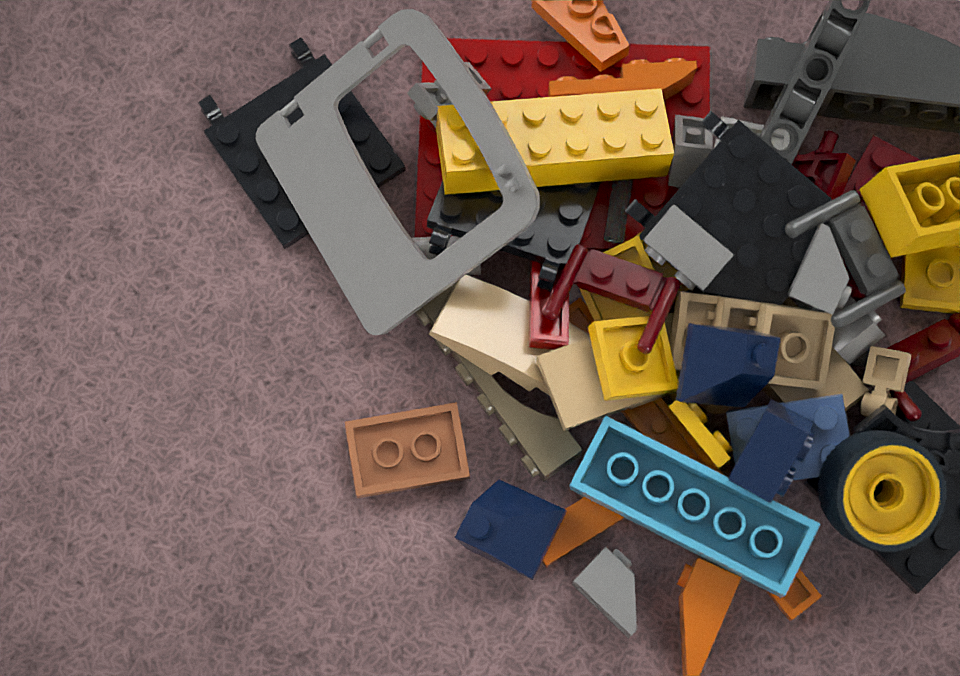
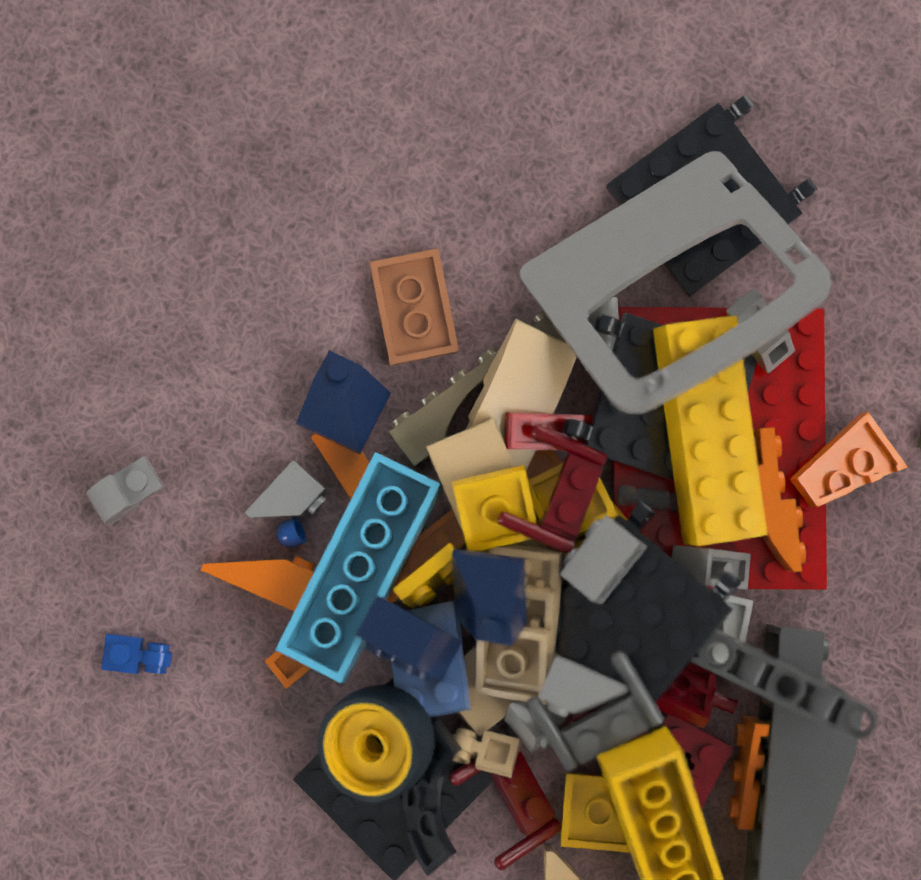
camera: 85 degrees right, 10 degrees up
(652, 589) = (291, 533): none -> blue hinge
(864, 121) = (750, 759): none -> orange wing

